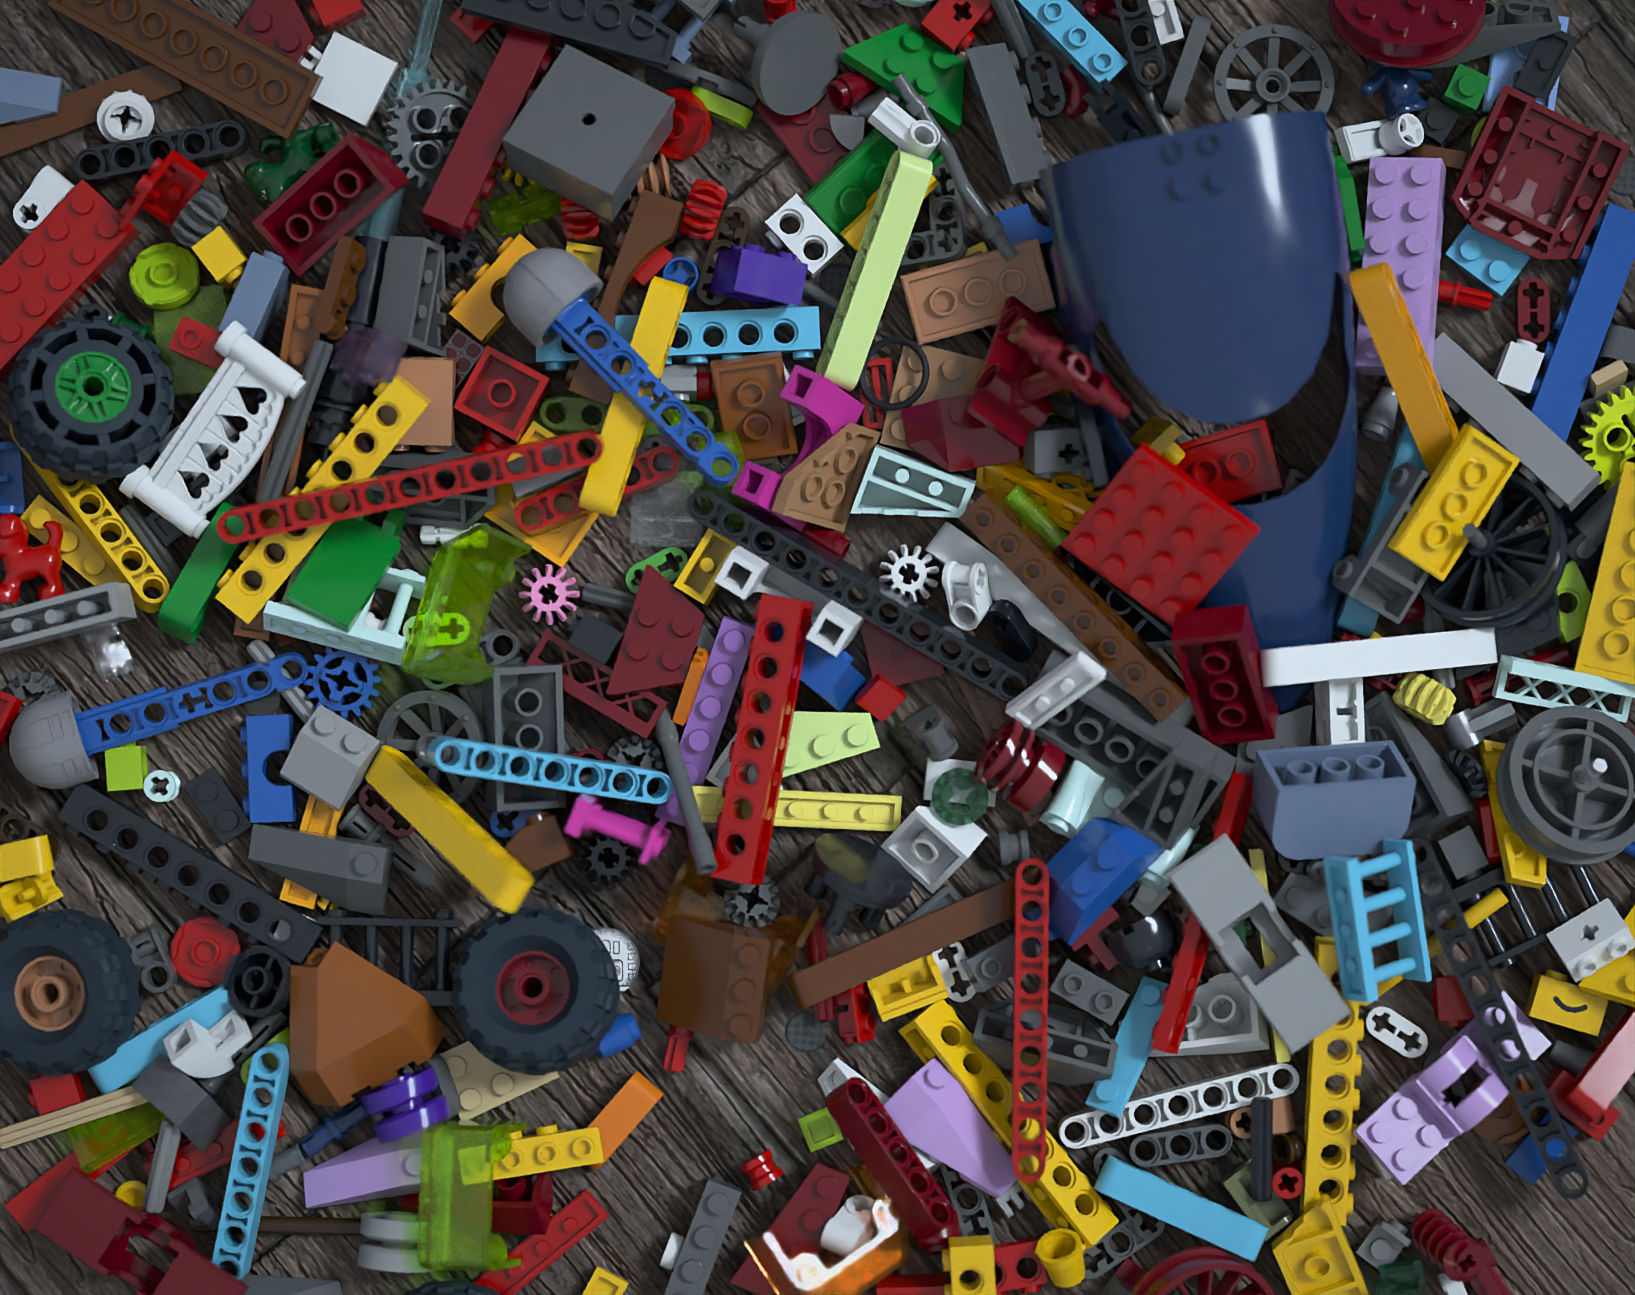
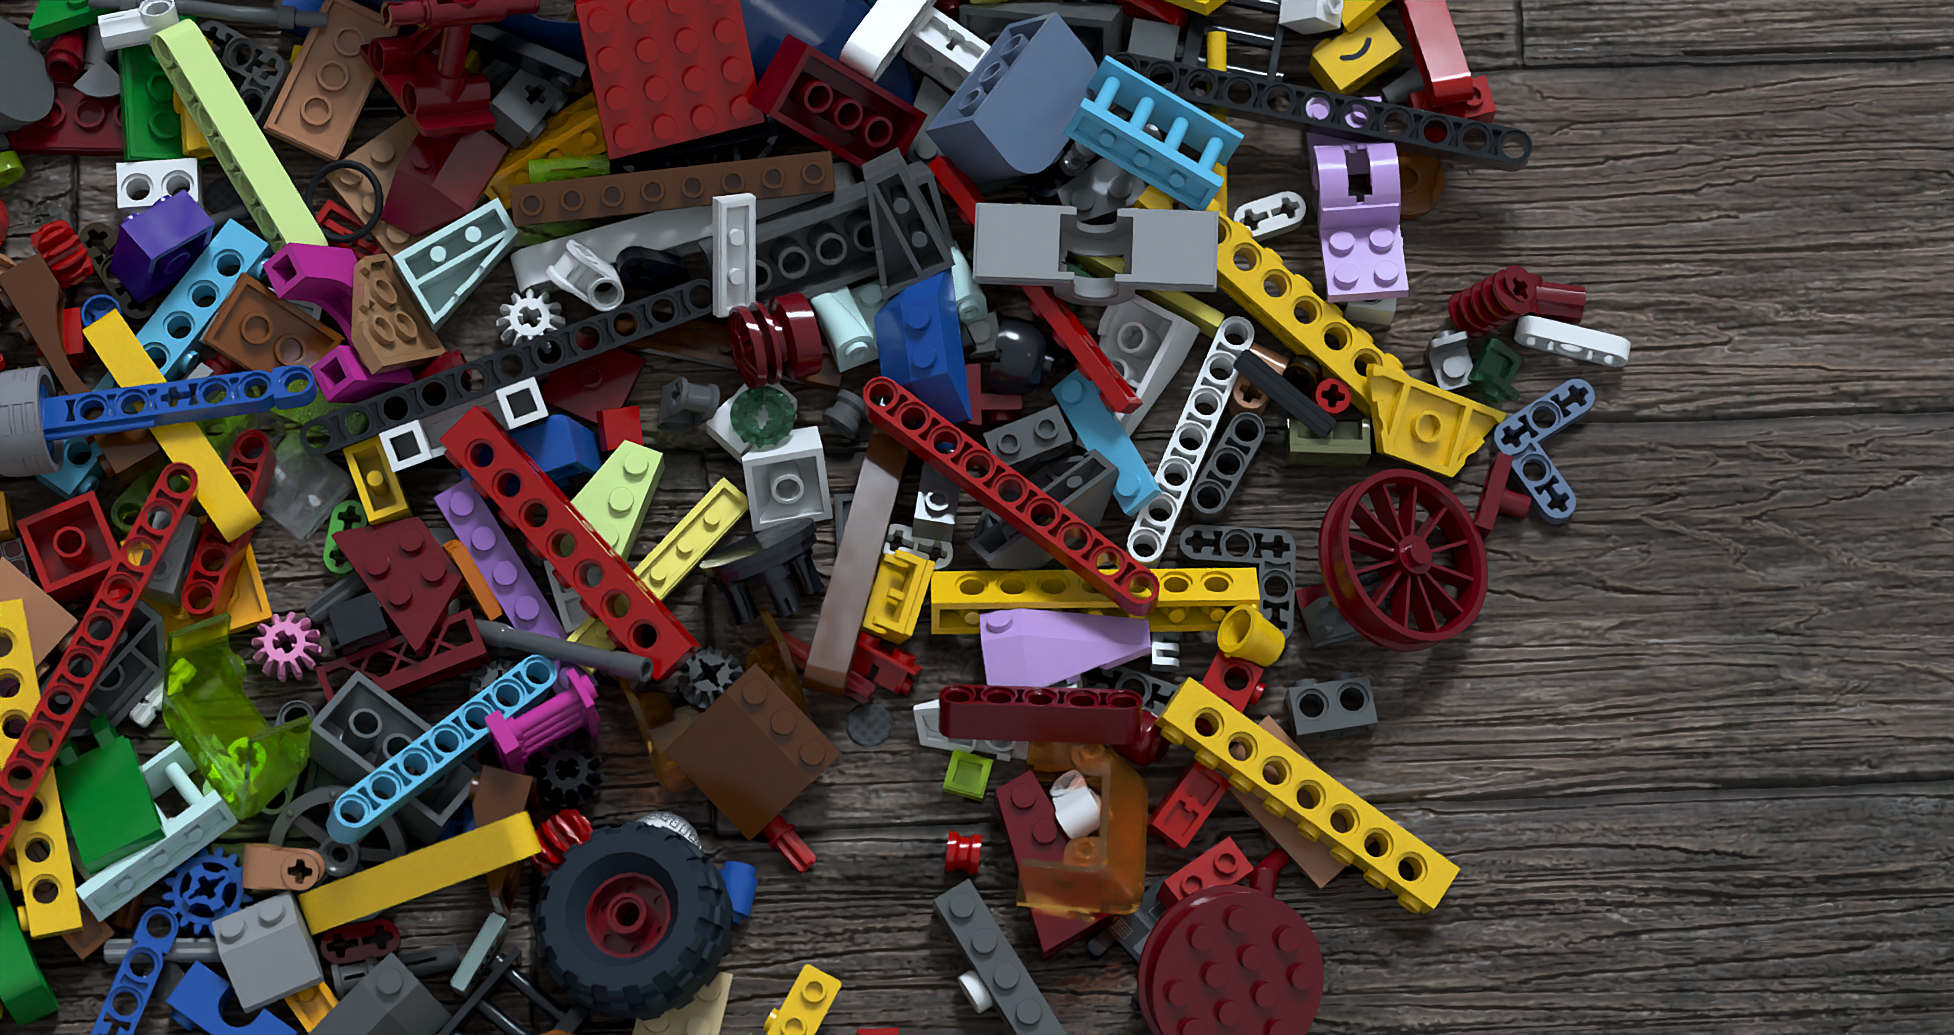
camera: 60 degrees left, 15 degrees down
(389, 719) = (273, 867): none -> nougat piece
(437, 897) = (479, 955): none -> light aqua tile
(556, 892) = (557, 836): none -> red gear
(624, 1113) = (813, 936): orange beam -> none
(1181, 1208) = (1283, 501): medium azure beam -> none
(1450, 1001) = (1276, 149): red brick -> none
(1526, 1158) = (1468, 183): blue tile -> none

